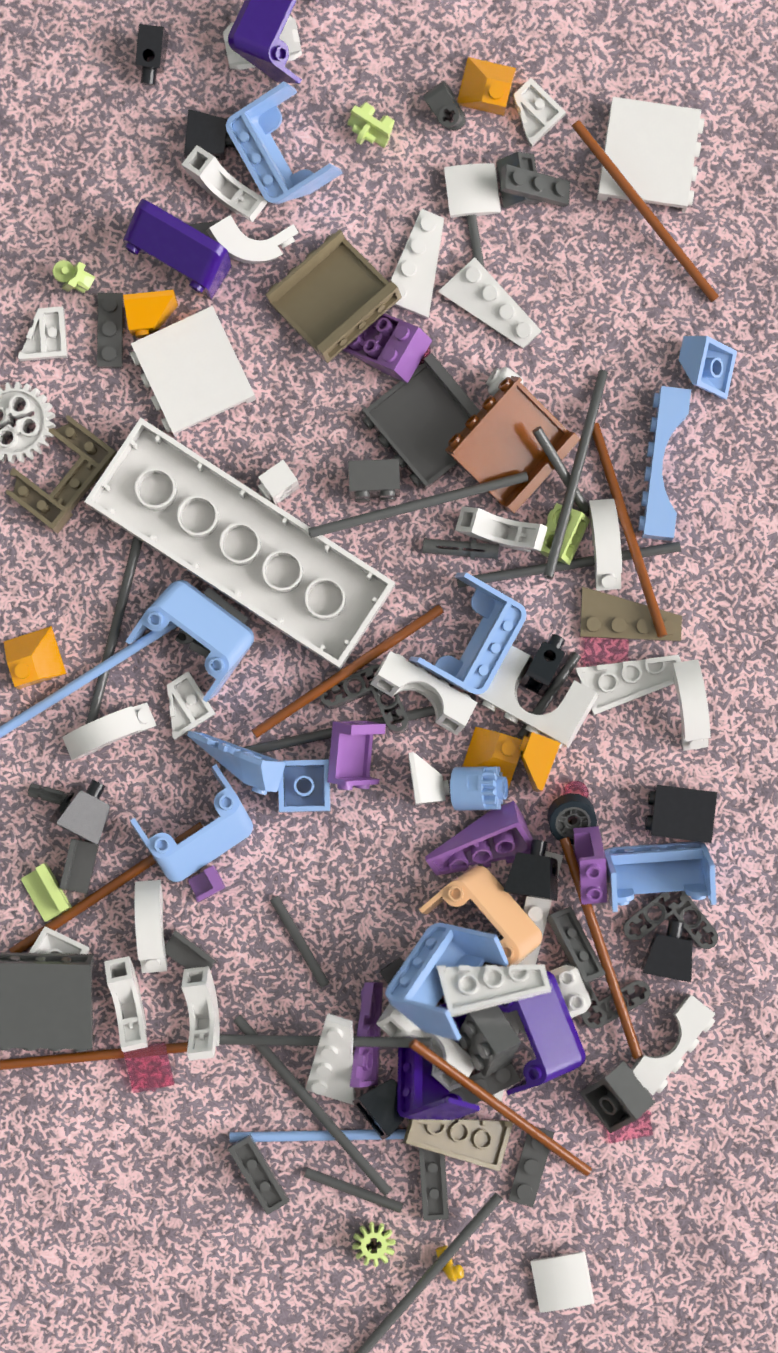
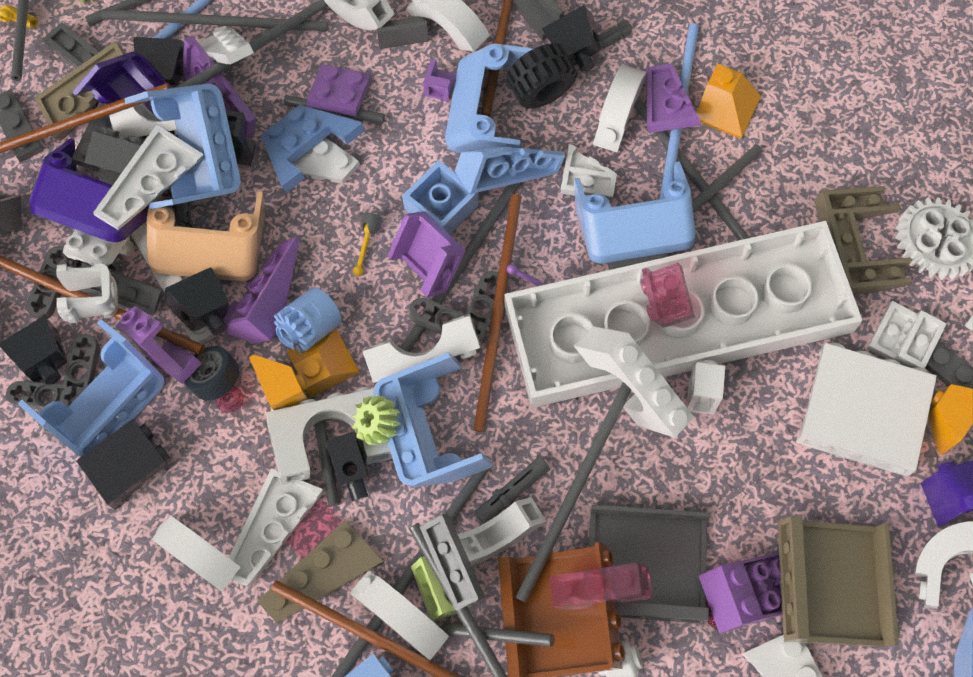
camera: 135 degrees right, 15 degrees down
(74, 700) = (667, 101): none -> medium lavender wing
(98, 607) = (727, 176): none -> dark grey bar
(112, 388) = (906, 336): none -> white slope
(143, 802) = (541, 75): none -> black tyre
(244, 555) = (667, 295): none -> clear pink bracket
(282, 951) = (338, 90): none -> medium lavender plate
(297, 654) = (512, 269): none -> medium lavender hinge
(324, 524) = (654, 402): none -> white arch
(347, 905) = (327, 162): none -> white wing
(348, 943) = (298, 134): none -> medium blue wing
(366, 823) = (370, 224): none -> hinge
(374, 480) = (637, 466): dark grey brick -> none
(426, 782) = (354, 288): white slope -> none
(474, 420) = (612, 583): none -> clear pink arch
(504, 666) = (376, 420): none -> yellowish green gear
(548, 530) = (452, 561): none -> plate
(625, 946) = (75, 279): none -> white piece

